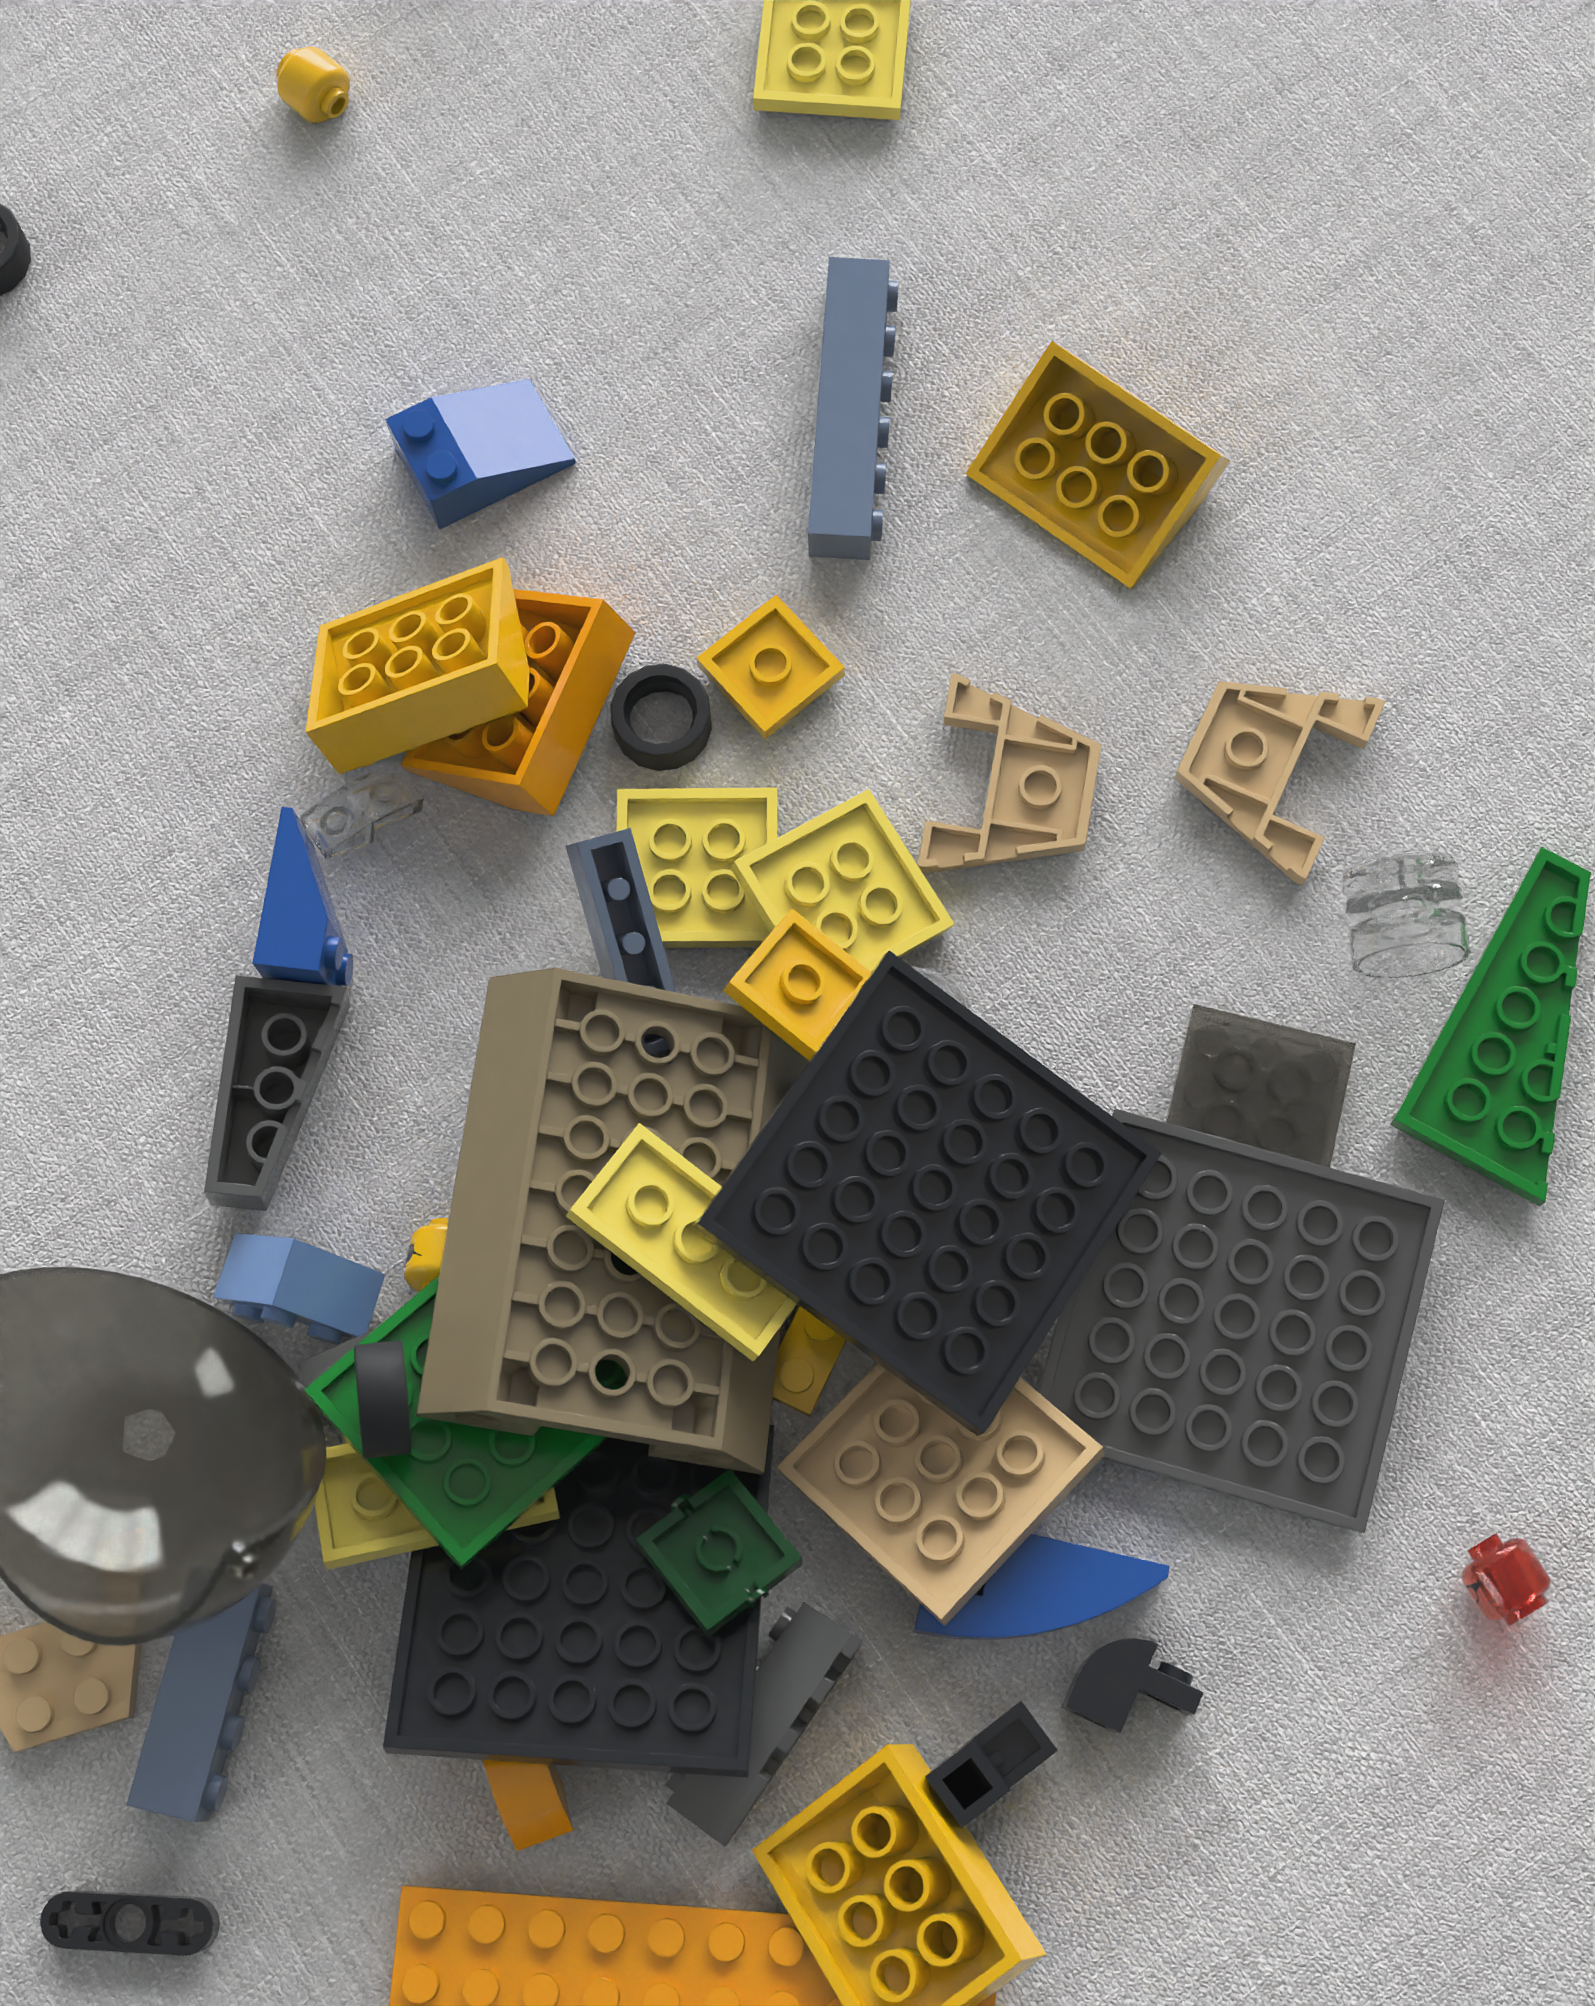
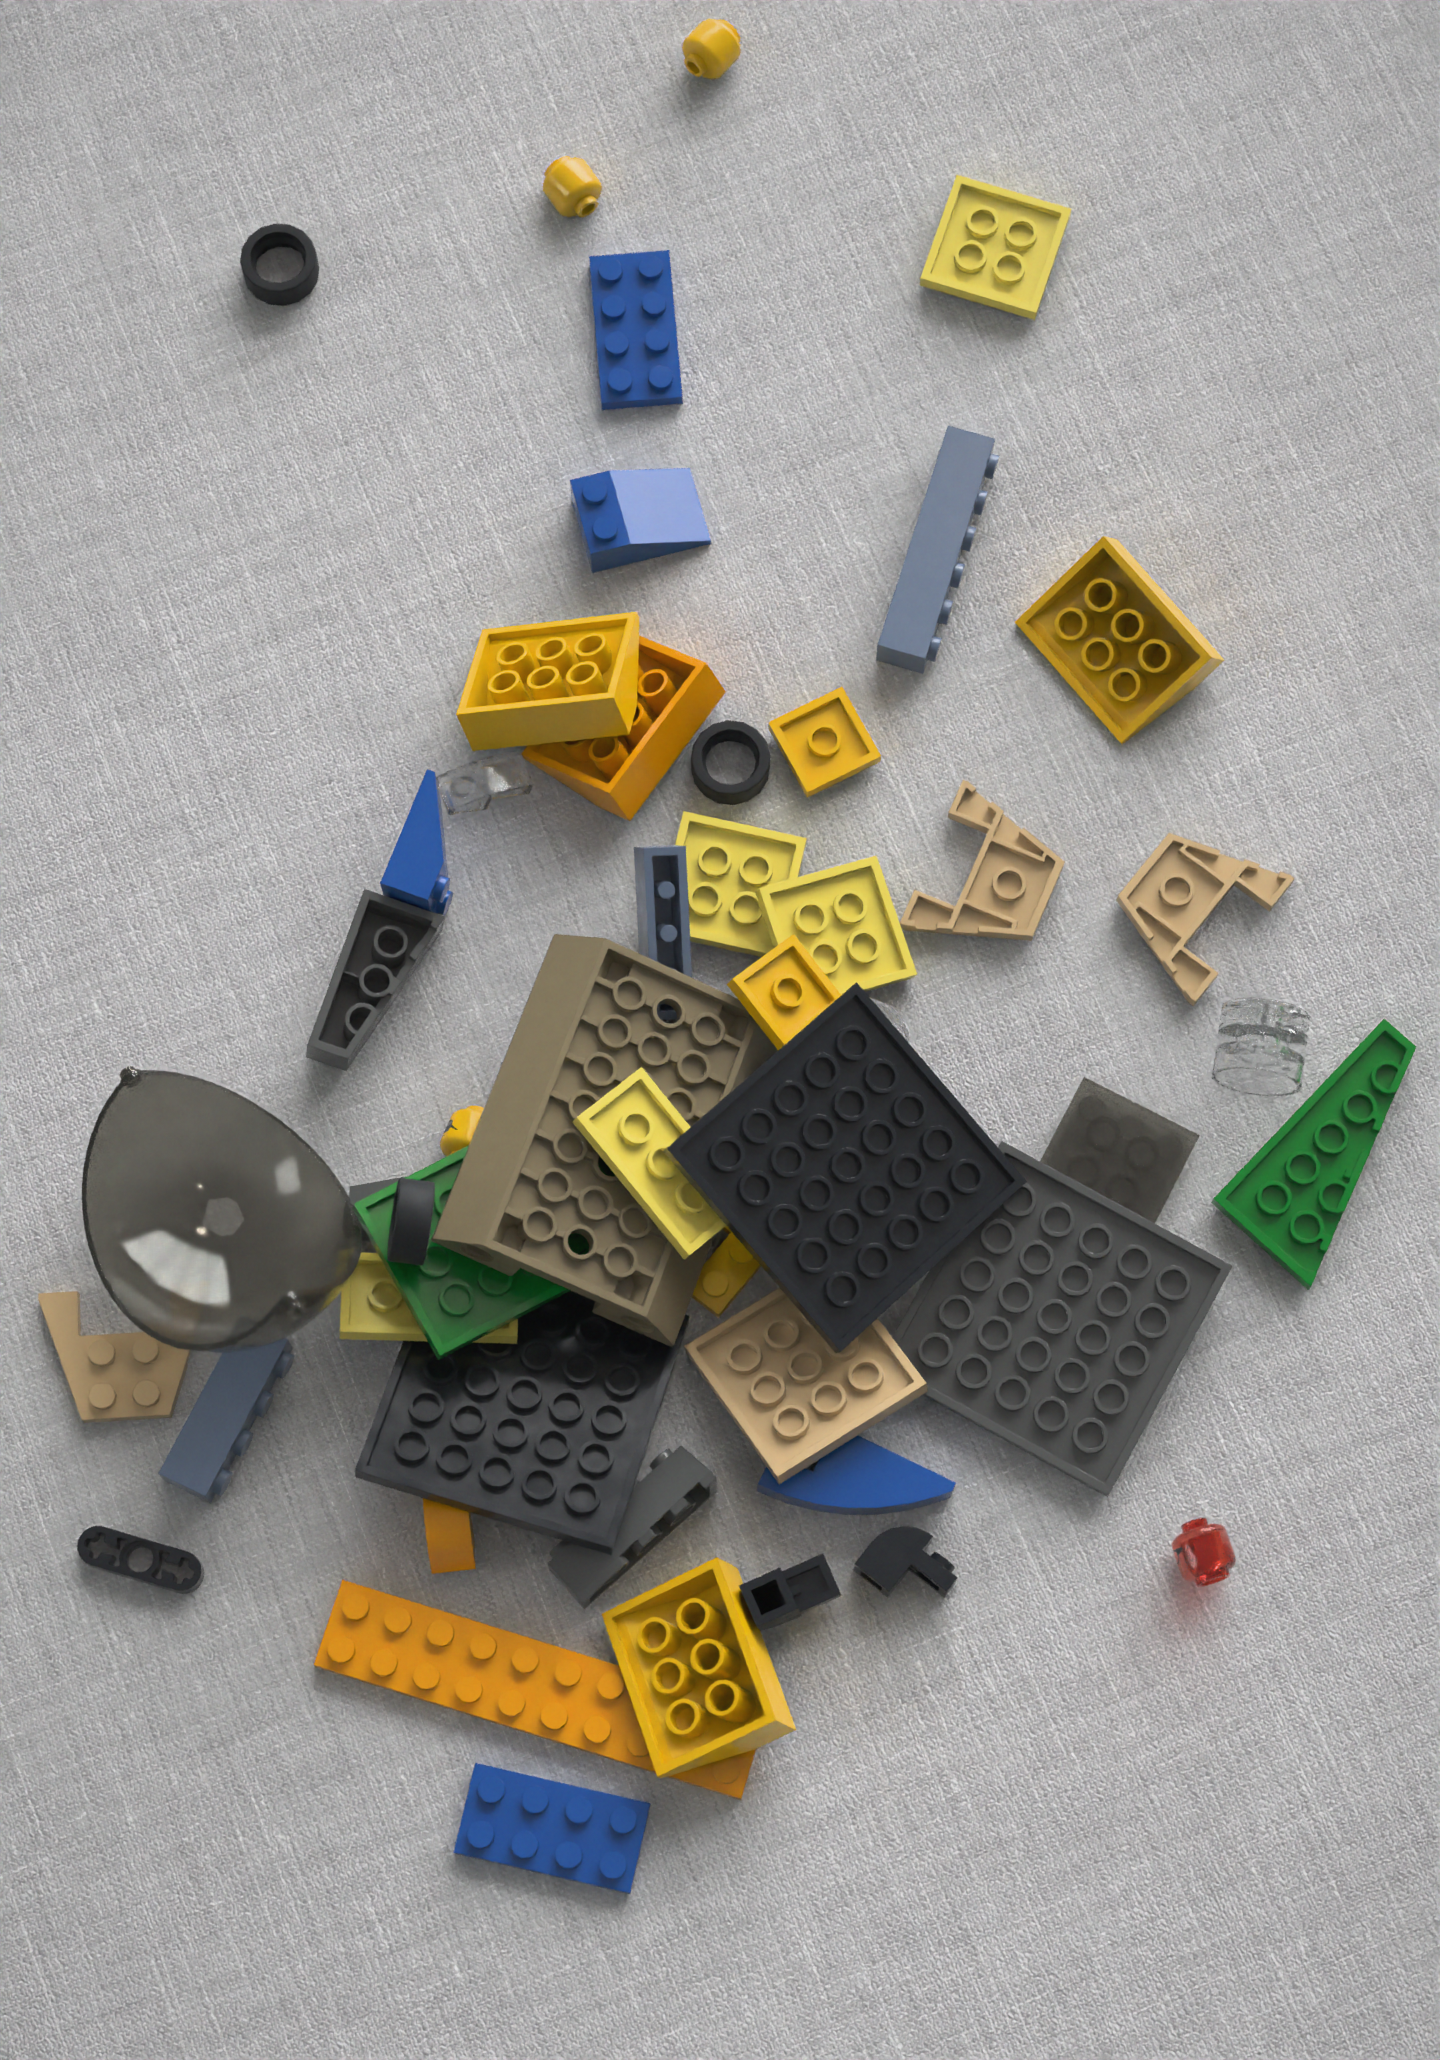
camera: 10 degrees right, 0 degrees up
(293, 1282) = (360, 1129): medium blue brick -> none
(427, 233) = (635, 330): none -> blue plate
(719, 1552) = (627, 1392): dark green plate -> none

